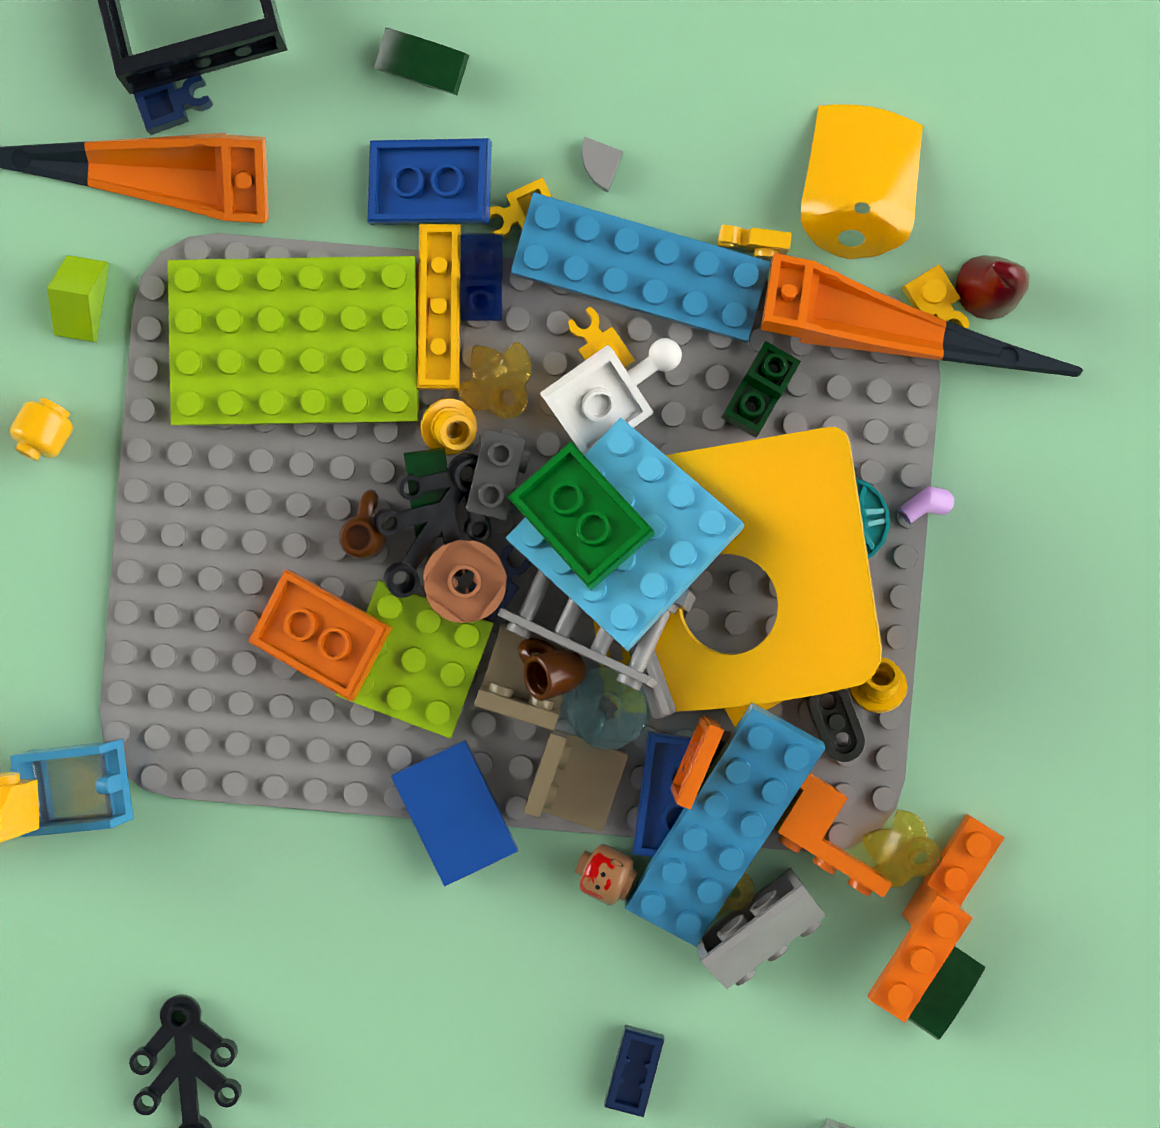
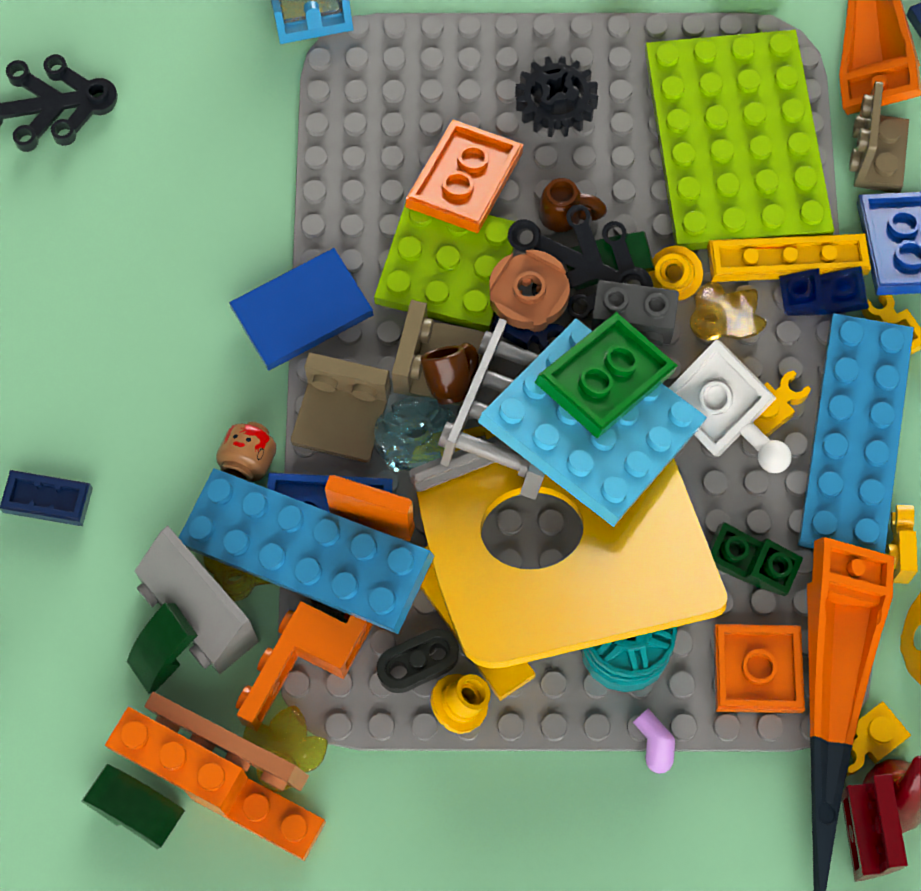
camera: 80 degrees right, 20 degrees down
(219, 542) = (557, 98): none -> black gear
(314, 190) = (880, 146): none -> dark tan bracket
(802, 963) = (159, 645): none -> dark green slope
(868, 397) = (758, 668): none -> orange tile
(907, 896) = (239, 751): none -> nougat plate
(1033, 314) = (873, 828): none -> dark red slope

